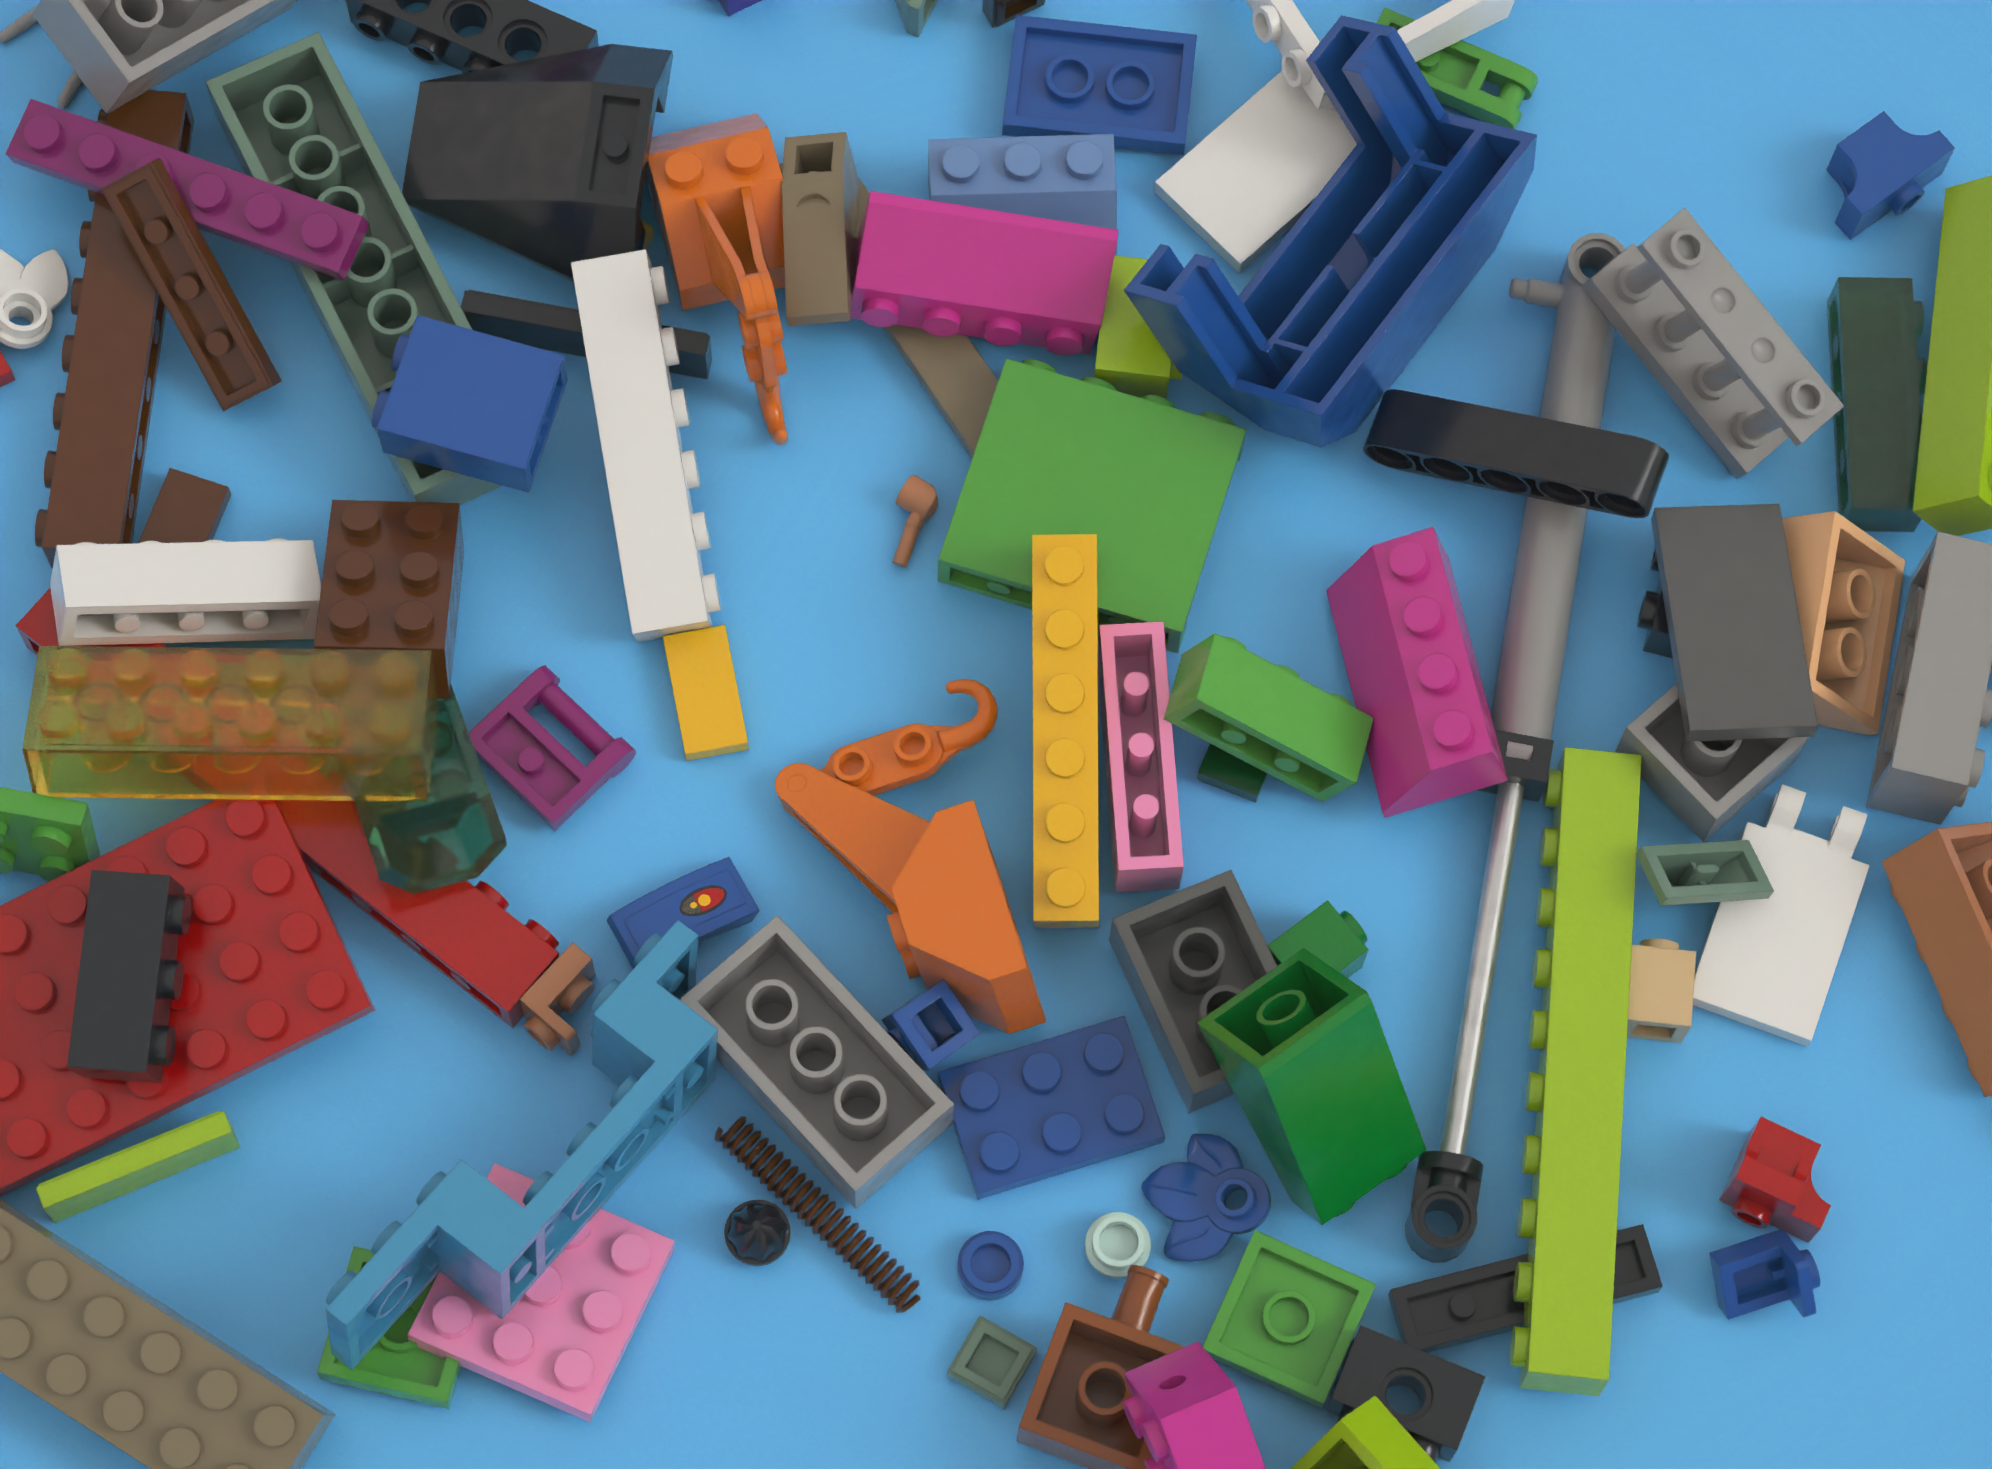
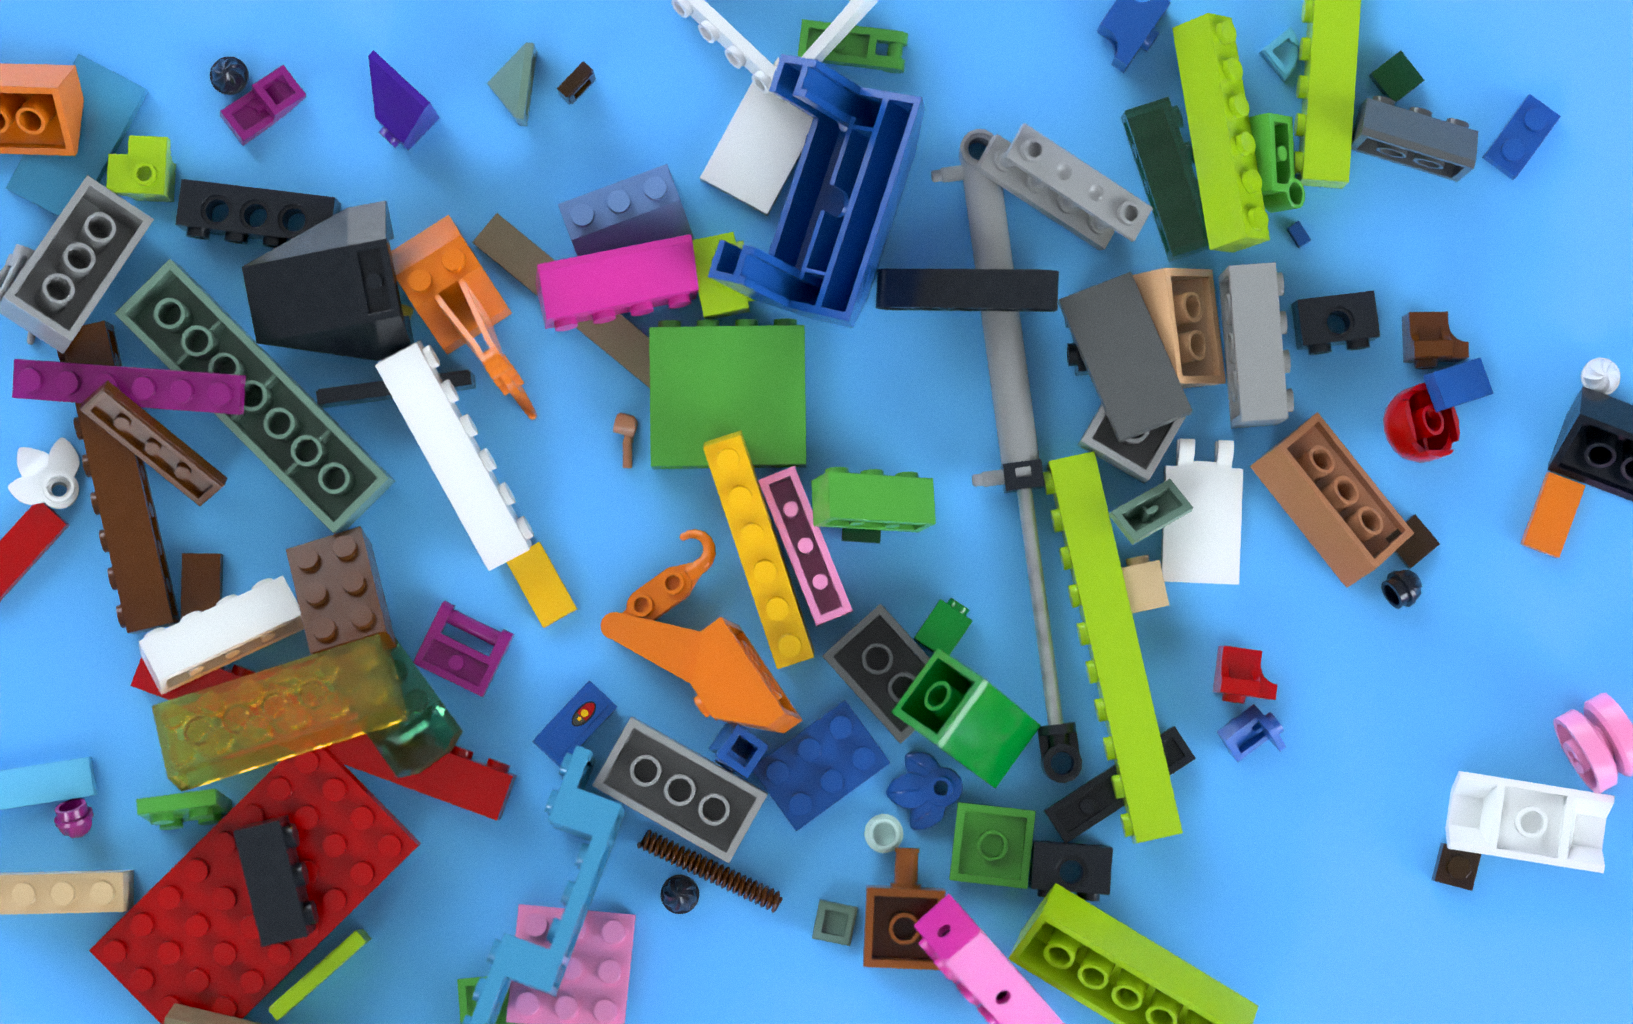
camera: 15 degrees left, 15 degrees up
(470, 403) = (346, 470): blue brick -> none
(559, 989) = (522, 791): nougat bracket -> none
(819, 227) = (512, 286): dark tan slope -> none
(990, 1265) = (816, 868): blue tile -> none
(1100, 82) = (646, 125): blue plate -> none
(1415, 674) = (950, 444): dark pink slope -> none

